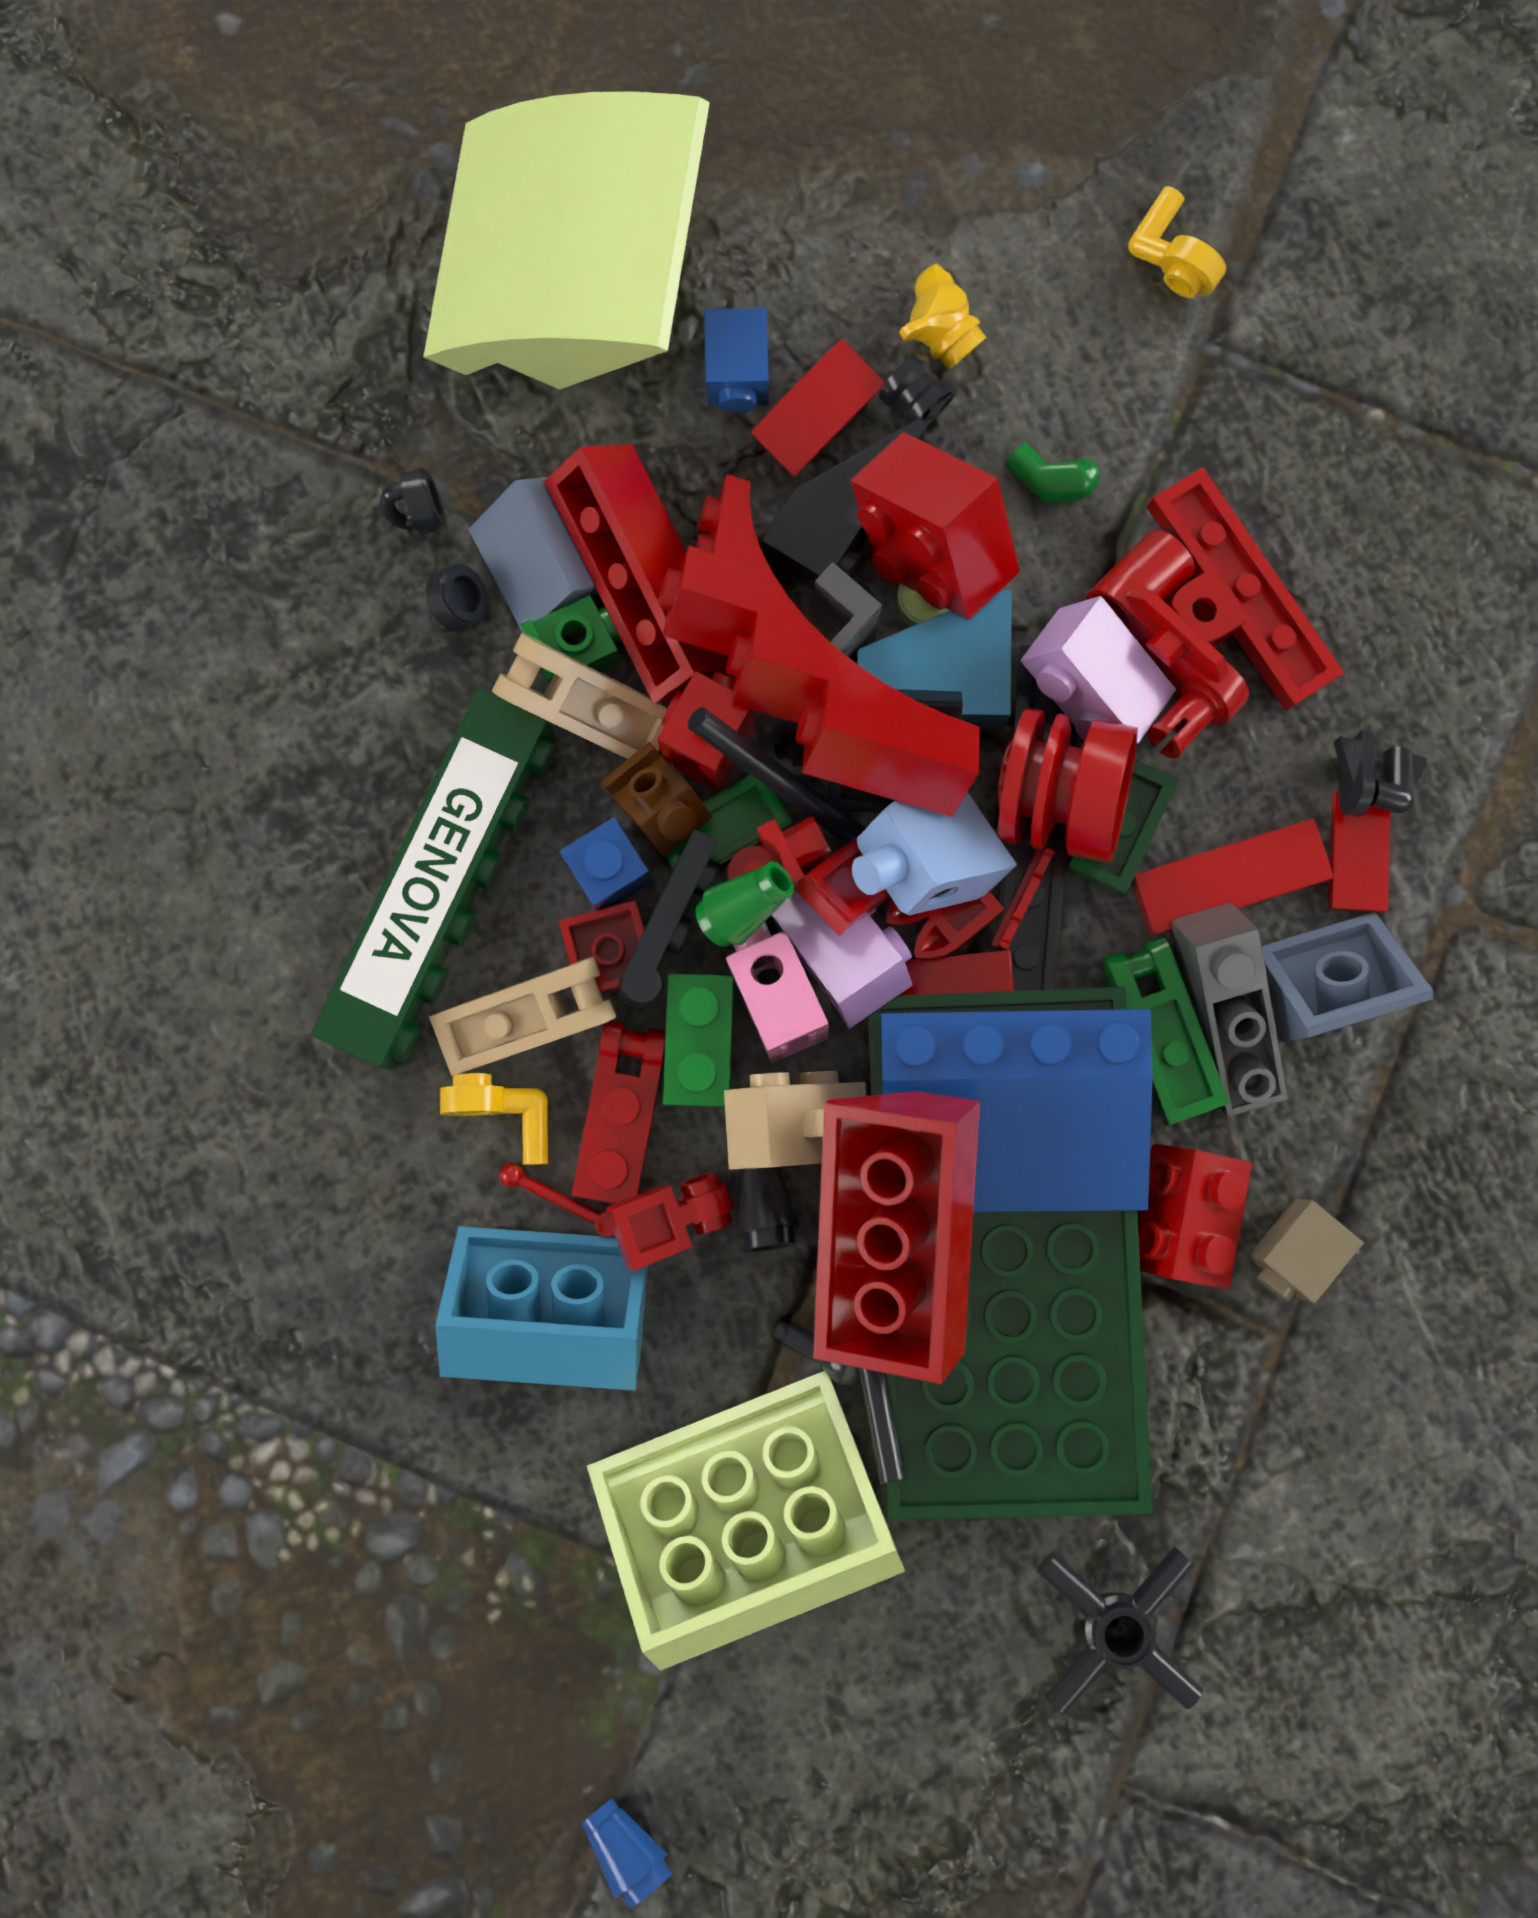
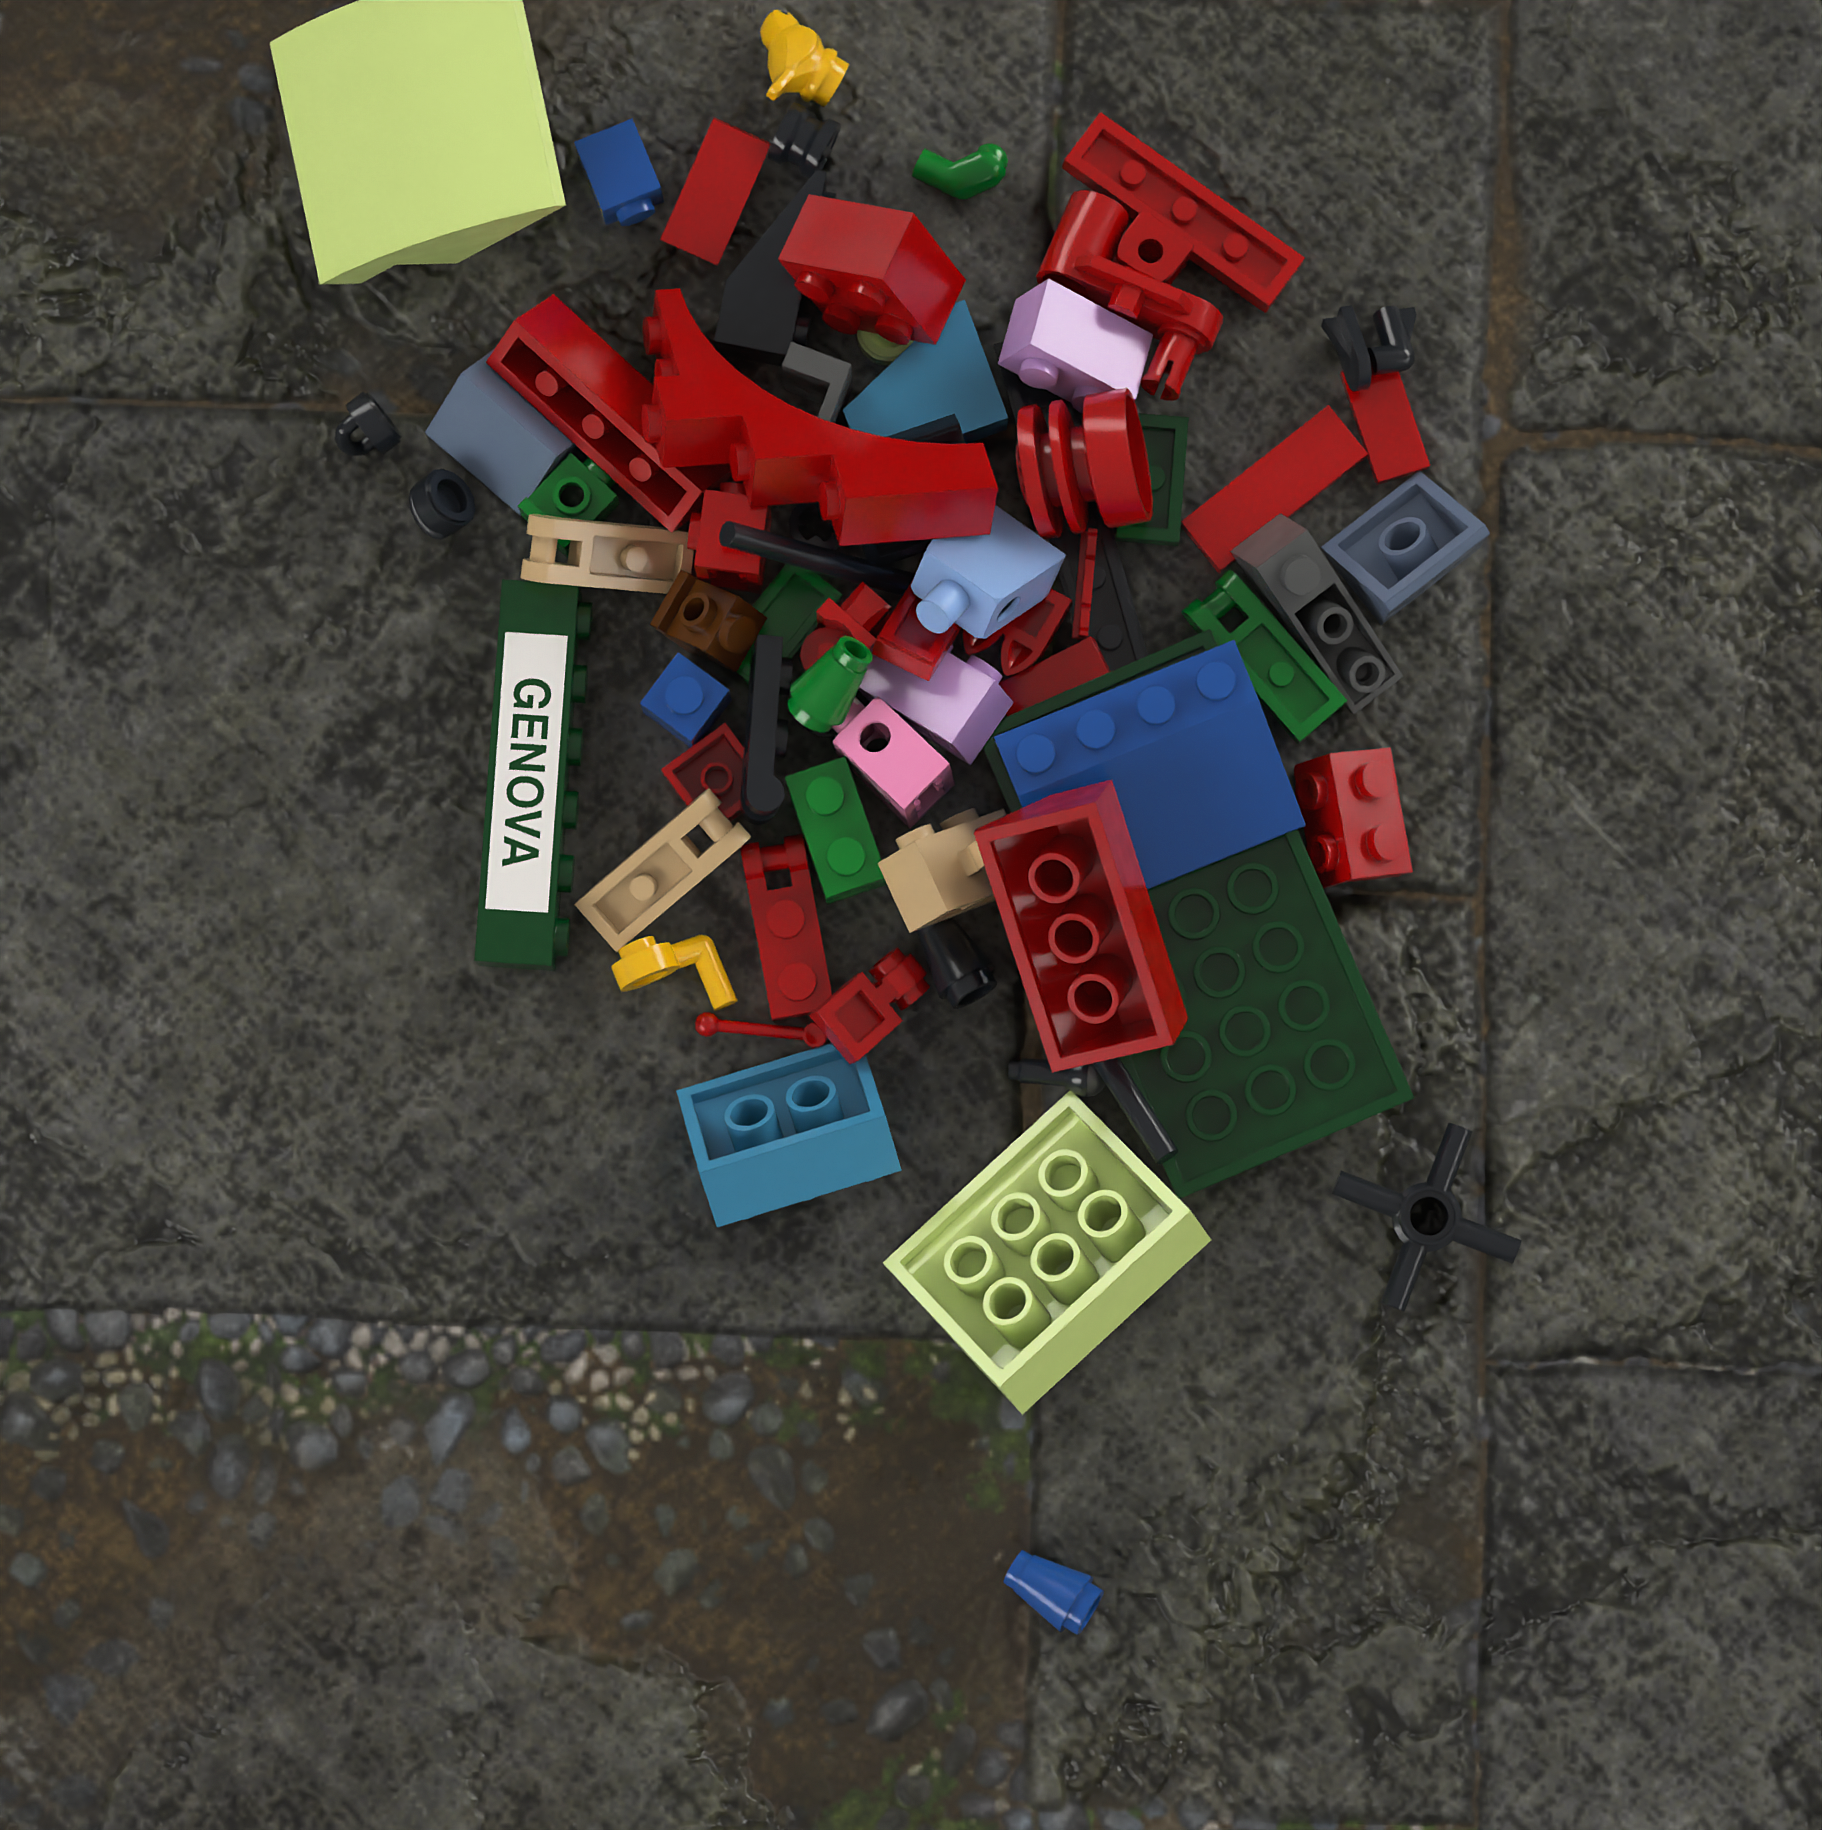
camera: 25 degrees left, 0 degrees up
(1304, 1252) = (1466, 811): dark tan brick -> none

